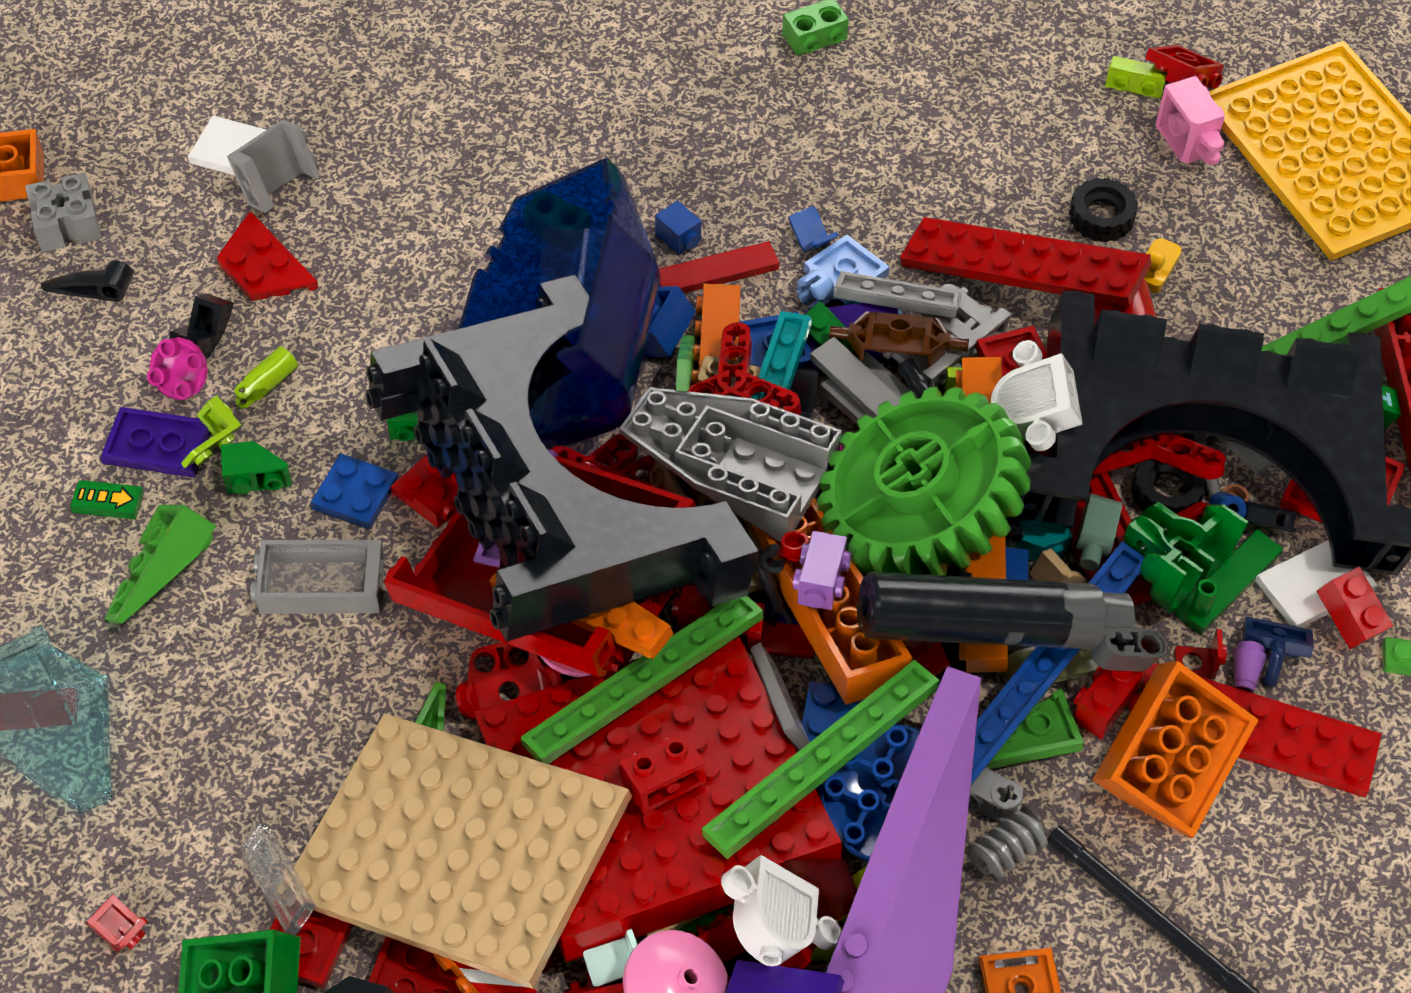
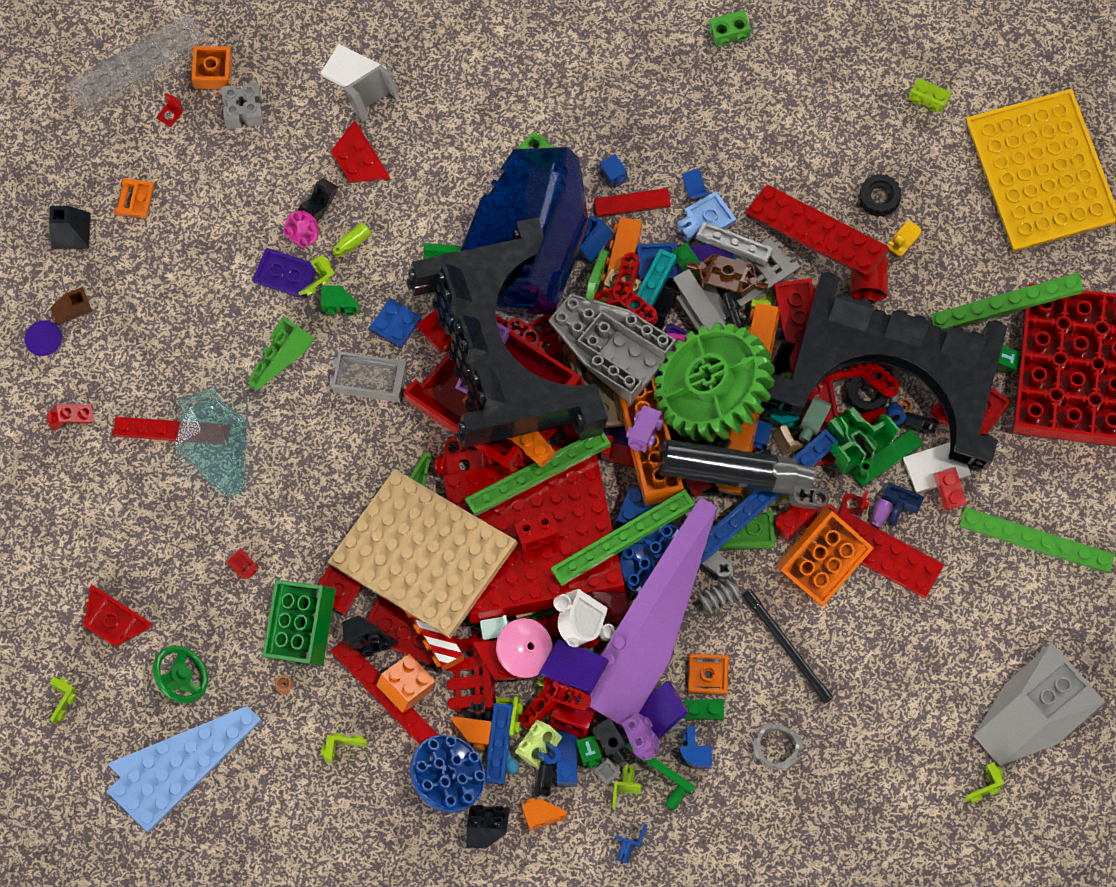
camera: 15 degrees right, 15 degrees up
(99, 284) = (257, 158): black piece -> none
(107, 499) = (254, 307): green tile -> none
(277, 878) = (327, 554): clear tile -> none
(764, 566) = (617, 418): black bar -> none
(779, 697) = (611, 493): light grey tile -> none
(792, 545) = (633, 405): red plate -> none
(1039, 395) = (789, 341): white piece -> none
(1184, 64) = (960, 97): red plate -> none
(1191, 121) = (951, 141): bright pink hinge -> none

